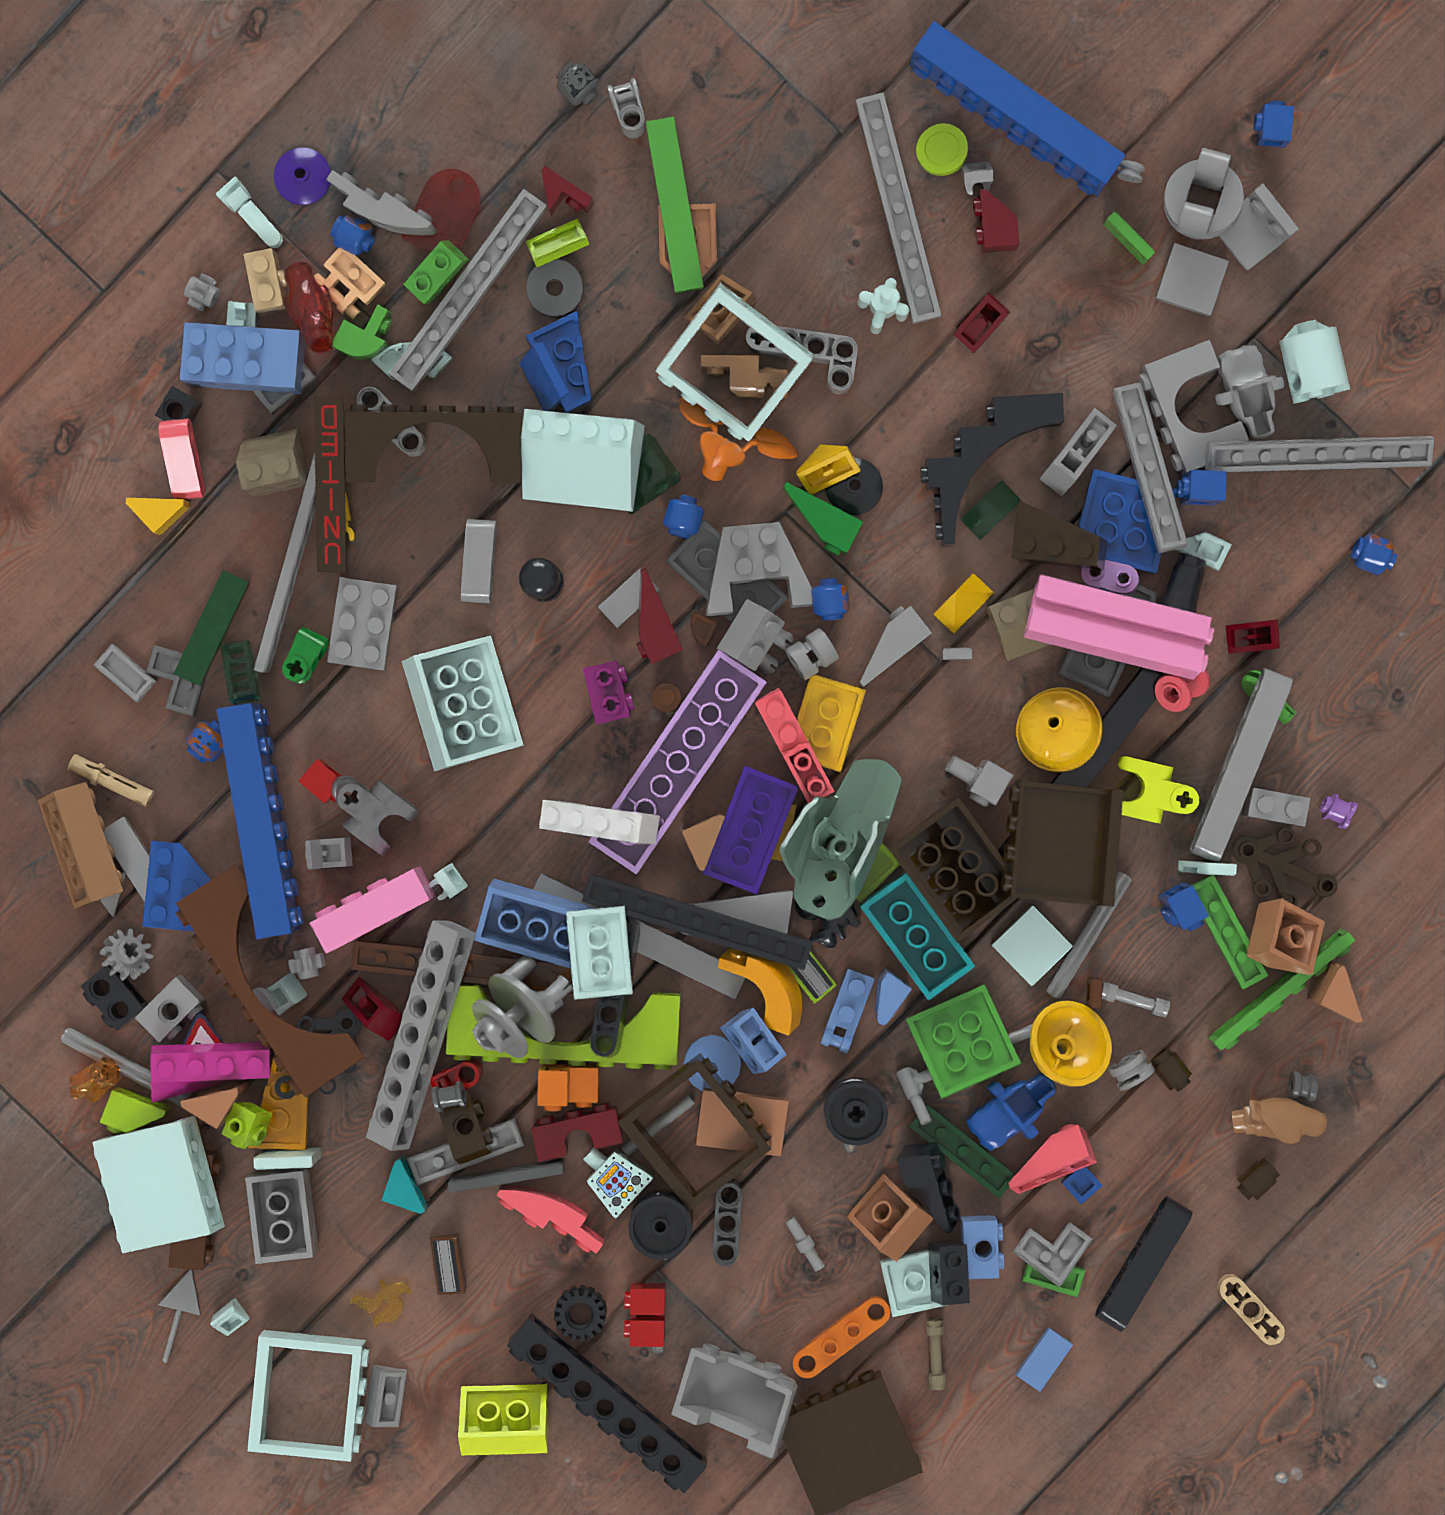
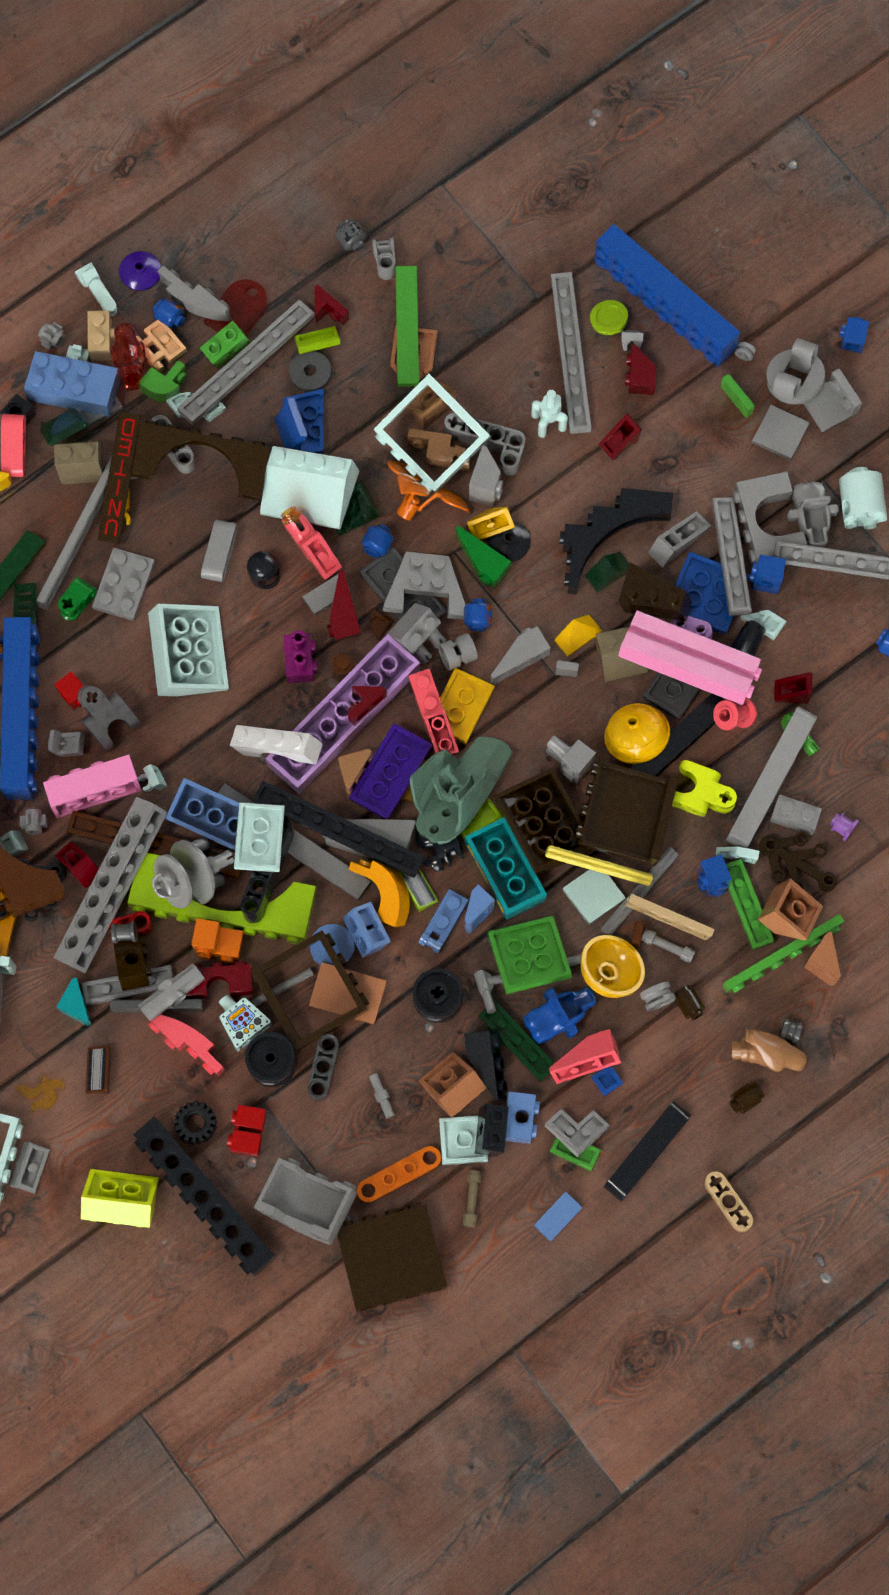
camera: 10 degrees right, 15 degrees down
(242, 423) = (62, 426): none -> clear green slope
(522, 1165) = (171, 992): none -> light grey piece
(596, 534) = (310, 542): none -> coral plate
(710, 744) = (369, 697): none -> dark red slope
(814, 412) = (485, 482): none -> light grey slope
(1036, 918) = (599, 865): none -> light yellow axle
(1132, 967) = (669, 917): none -> tan tile

